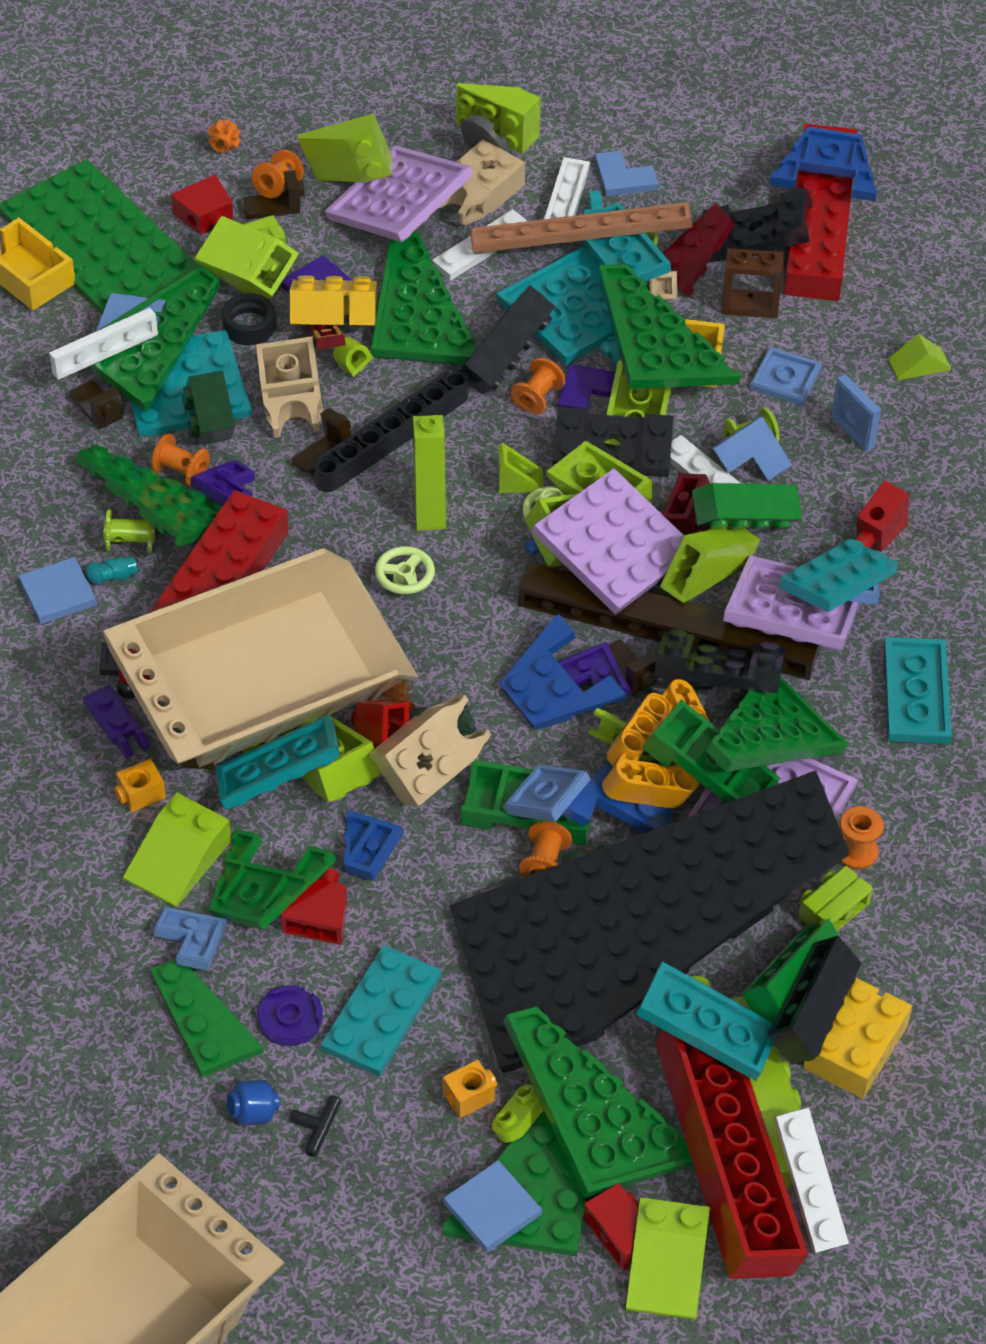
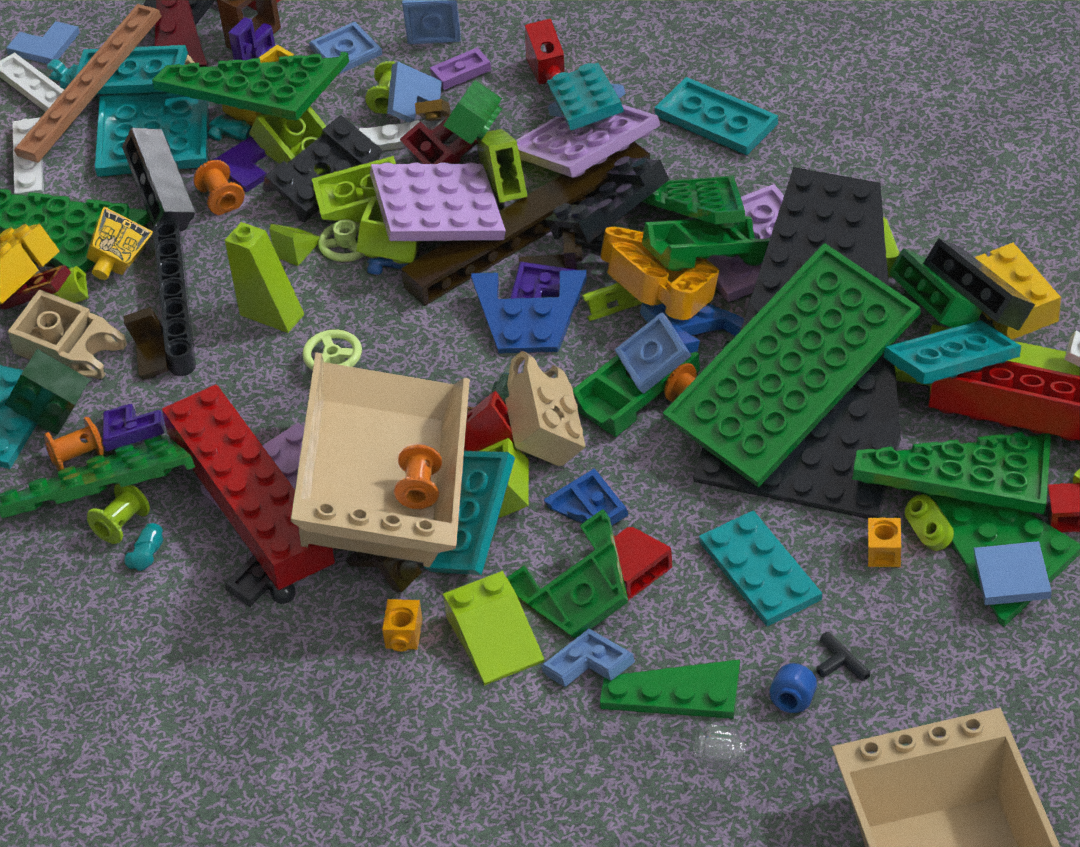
camera: 50 degrees left, 5 degrees down
(57, 590) = (129, 596): medium blue tile -> none
(115, 719) = (313, 615): dark purple hinge -> none
(151, 1080) = (718, 747): none -> clear head
(267, 699) = (416, 488): none -> orange hose
(289, 1026) = (719, 639): dark purple tile -> none
(413, 356) = (115, 243): none -> yellow torso
(599, 902) = (791, 364): none -> green plate
(715, 307) = (250, 44): none -> dark purple tile
(738, 474) = (433, 109): none -> pearl gold plate
(823, 470) = (461, 68): none -> medium lavender plate

